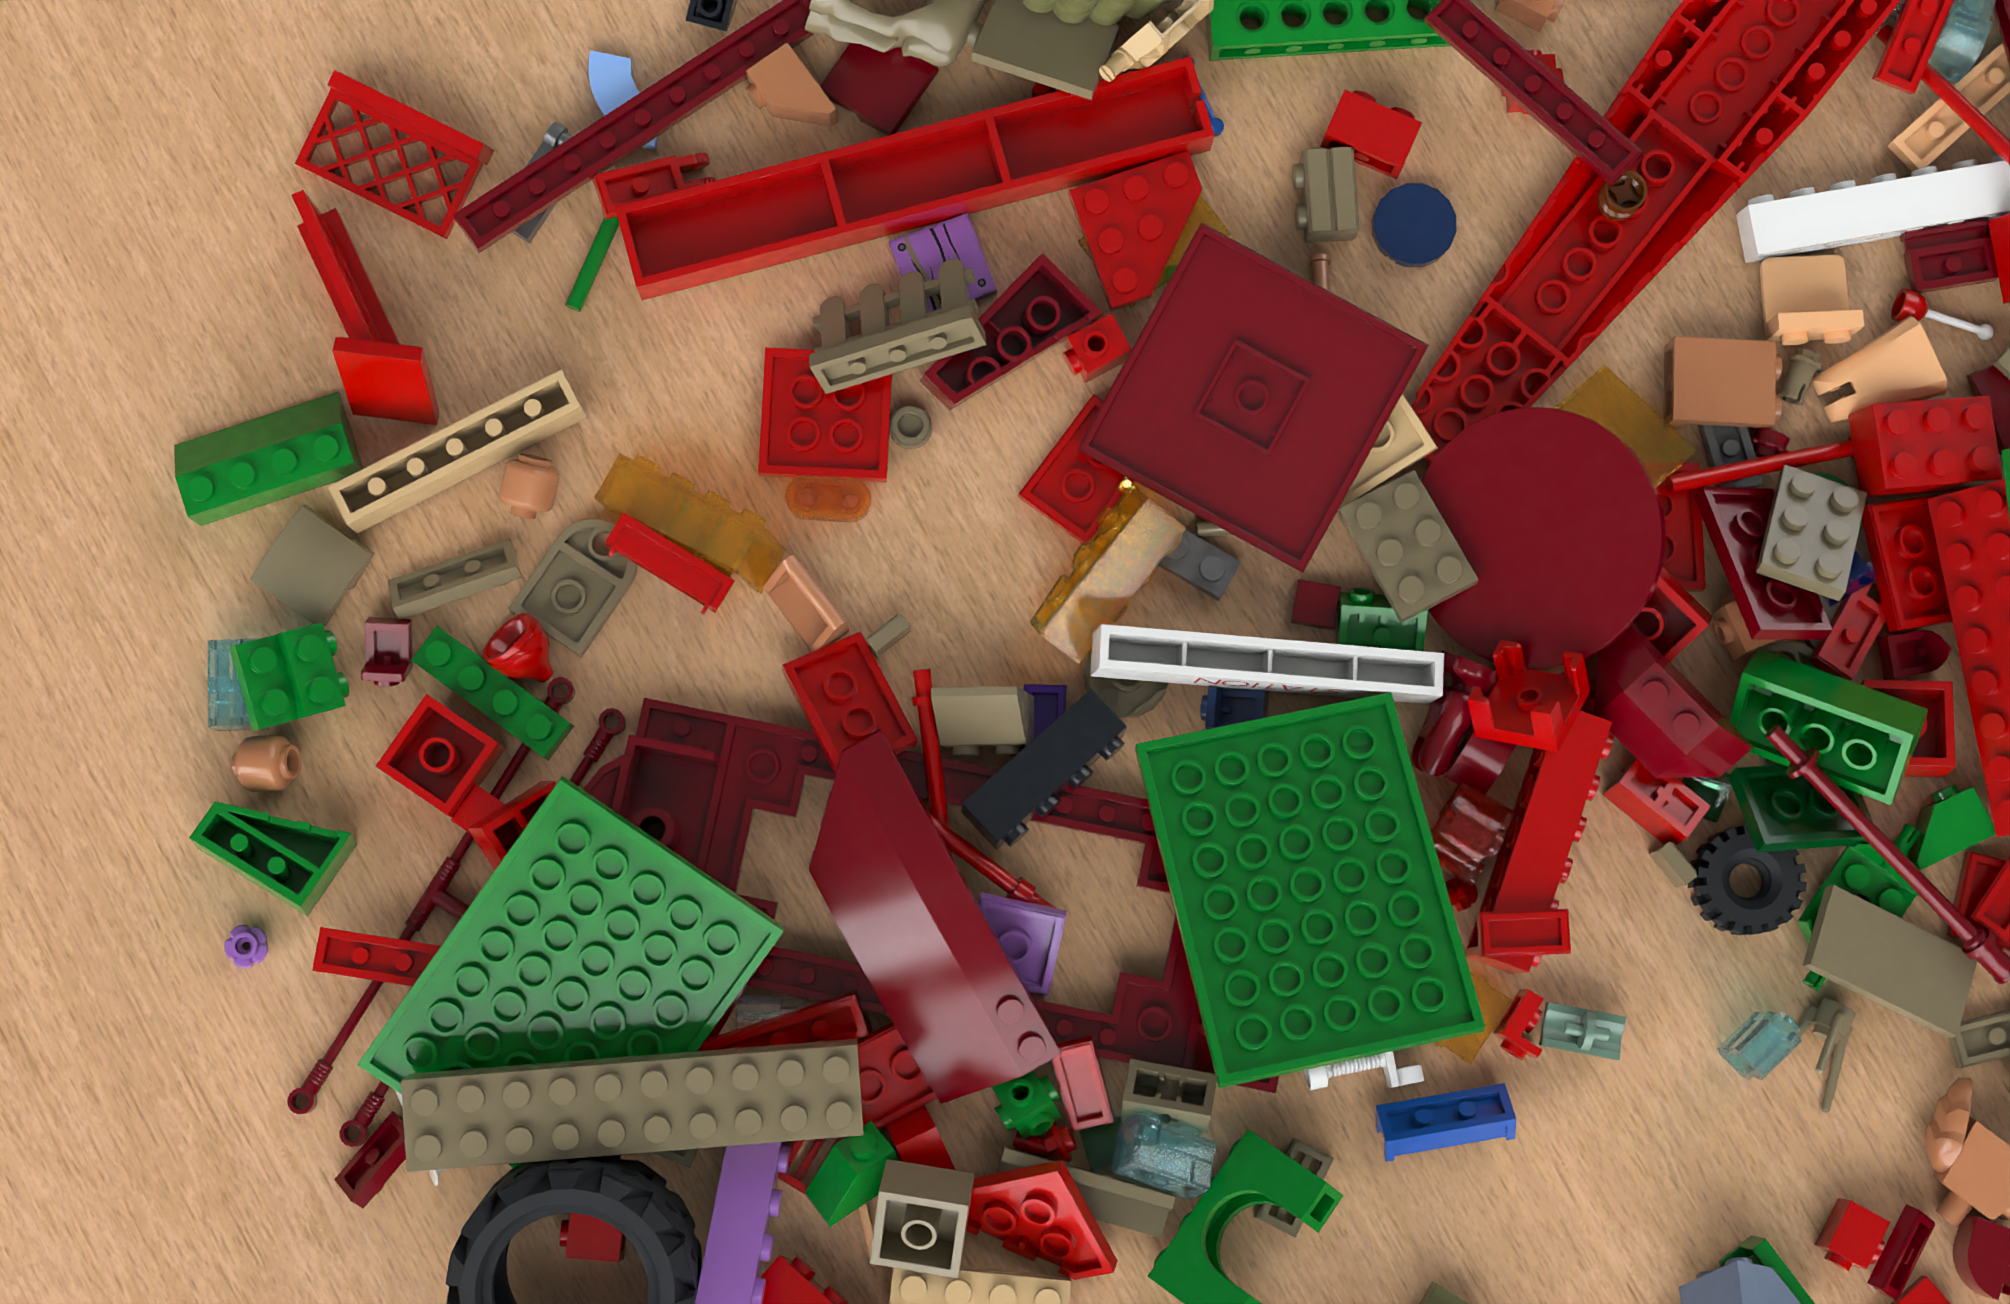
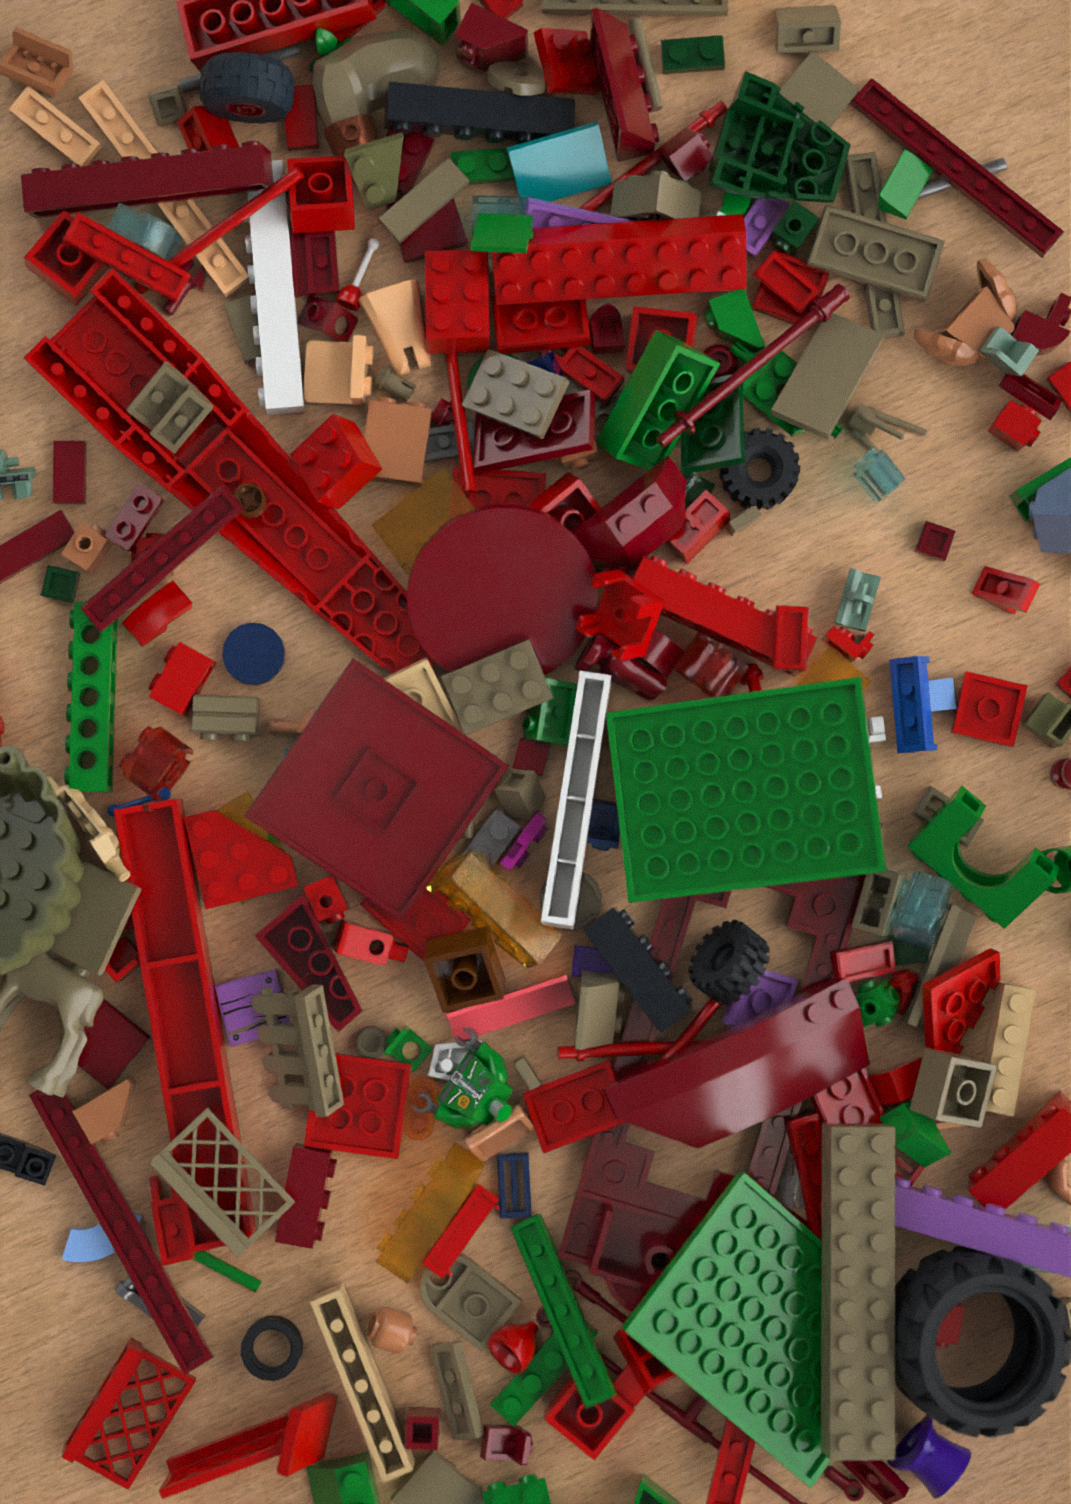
camera: 75 degrees left, 5 degrees up
(401, 536) = (423, 1428): none -> dark red brick
(407, 1232) = (931, 1457): none -> dark purple hat
(483, 300) = (265, 1372): none -> black tyre
(572, 709) = (563, 1311): none -> green tile
(684, 211) = (199, 1200): none -> dark tan fence
(698, 356) = (307, 1187): none -> dark red brick
(734, 650) = (512, 1157): none -> dark blue tile
(860, 566) = (475, 1090): none -> green torso
(896, 536) = (447, 1059): none -> white piece
(919, 461) = (398, 1039): none -> green bracket
(974, 605) = (514, 1008): none -> coral panel
(989, 88) = (123, 960): none -> red panel
(1022, 535) = (464, 969): none -> reddish brown brick
(1047, 387) = (354, 942): none -> torso
(1066, 891) = (729, 962): none -> black tyre
(1183, 596) = (534, 831): none -> magenta wing
(1259, 108) = (156, 761): none -> clear red brick
(1264, 592) = (520, 793): none -> dark tan panel
(1450, 1231) = (989, 709): none -> red plate
(1451, 88) = (156, 613): none -> red slope
(1461, 1163) = (942, 695): none -> light blue tile
(1580, 51) = (134, 517): none -> dark red bracket
(1619, 1239) = (1005, 590): none -> red slope
(1675, 1136) = (935, 541): none -> dark red tile
(1688, 303) = (336, 461): none -> red brick
(1734, 80) = (170, 407): none -> dark tan slope
(1858, 167) = (242, 323): none -> dark tan tile
(1880, 271) = (322, 316): none -> dark red bracket
(1899, 814) = (728, 360): none -> dark red plate
(1903, 107) = (196, 282): none -> dark red bar
(1956, 1210) = (1008, 353): none -> sand green panel

